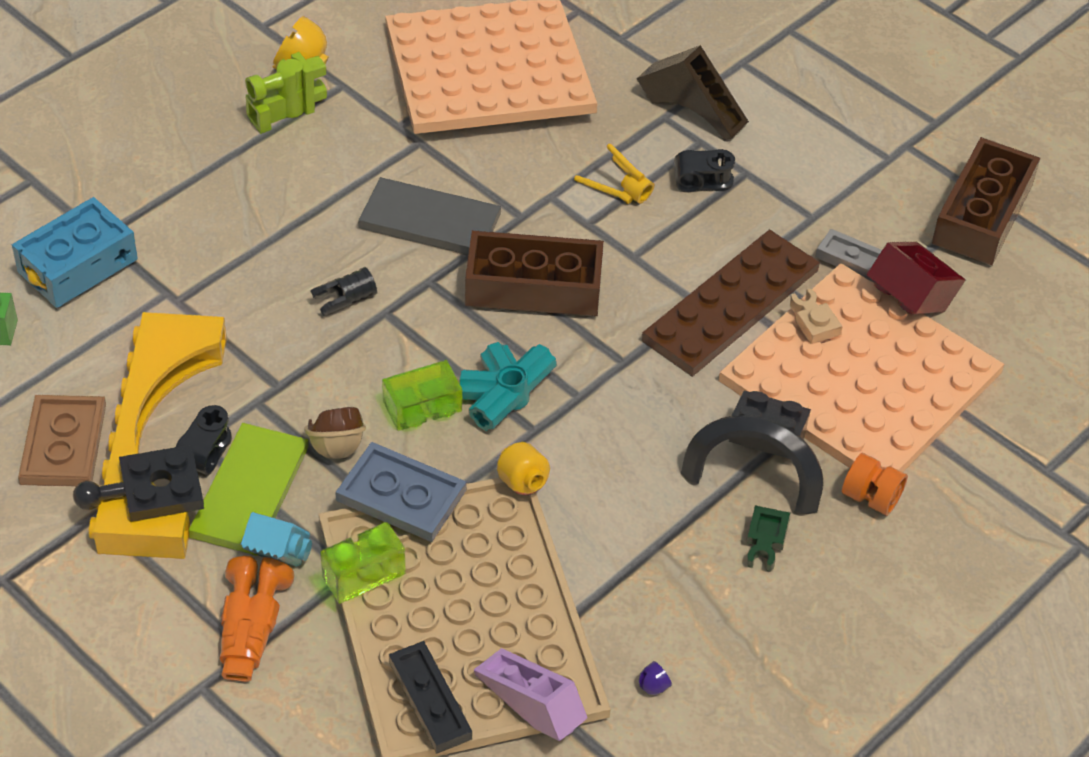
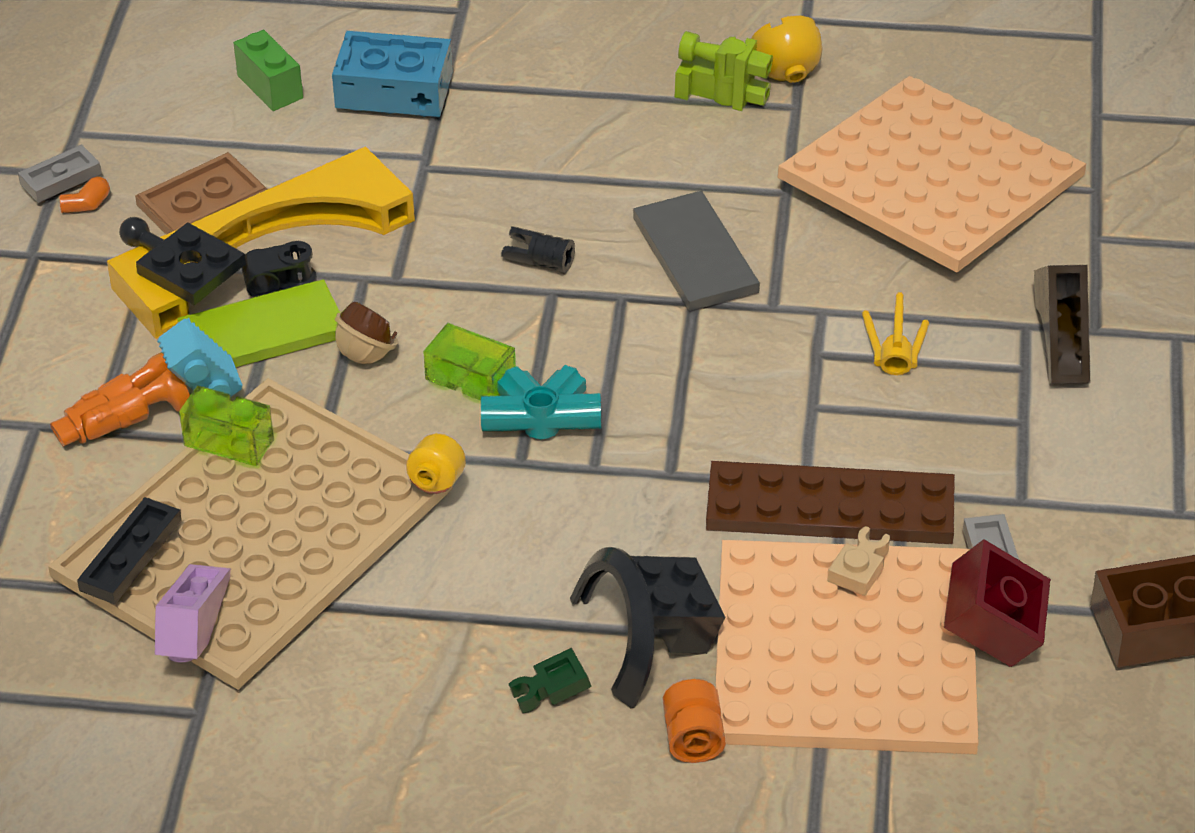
camera: 55 degrees right, 5 degrees down
(401, 491) = (333, 407): sand blue plate -> none
(534, 273) = (690, 346): reddish brown brick -> none
(654, 679) = (306, 694): dark purple hinge -> none
(702, 172) = (973, 387): black piece -> none

